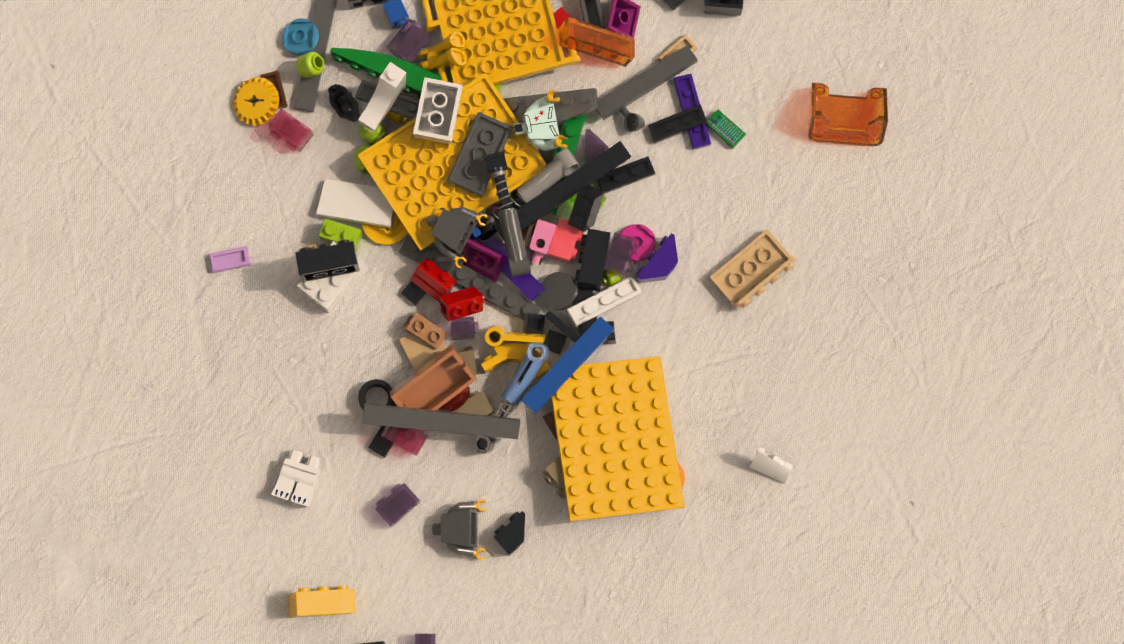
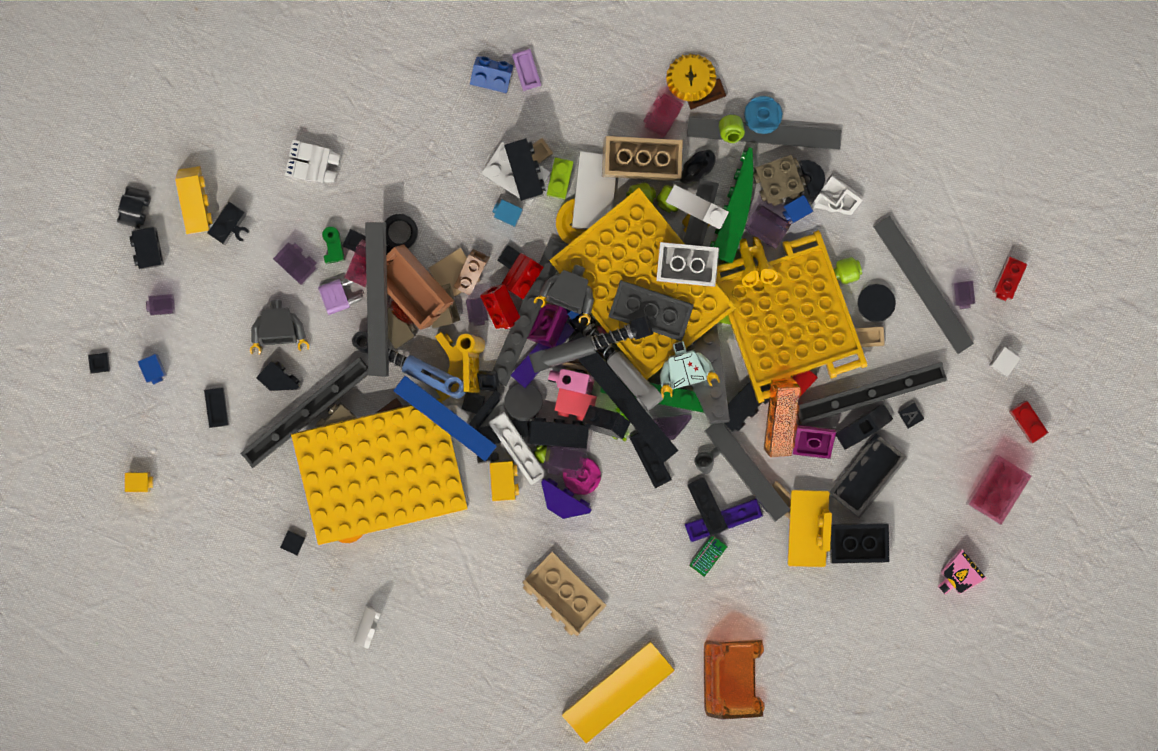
camera: 90 degrees right, 10 degrees up
(230, 293) = (491, 74): none -> bracket
(329, 152) = (642, 158): none -> tan brick
(350, 569) = (228, 224): none -> black brick
(366, 26) = (779, 180): none -> dark tan brick
(369, 289) = (507, 212): none -> dark azure brick
(378, 465) = (334, 245): none -> green leg
(436, 468) = (335, 296): none -> lavender piece
(535, 600) = (216, 407): none -> black tile
(550, 509) = (306, 412): none -> dark grey tile
(581, 77) = (744, 405): none -> black brick
(635, 318) = (502, 481): none -> yellow brick
(679, 534) = (292, 542): none -> black tile
(706, 28) = (809, 528): none -> yellow bracket
(852, 227) = (618, 692): none -> yellow arch

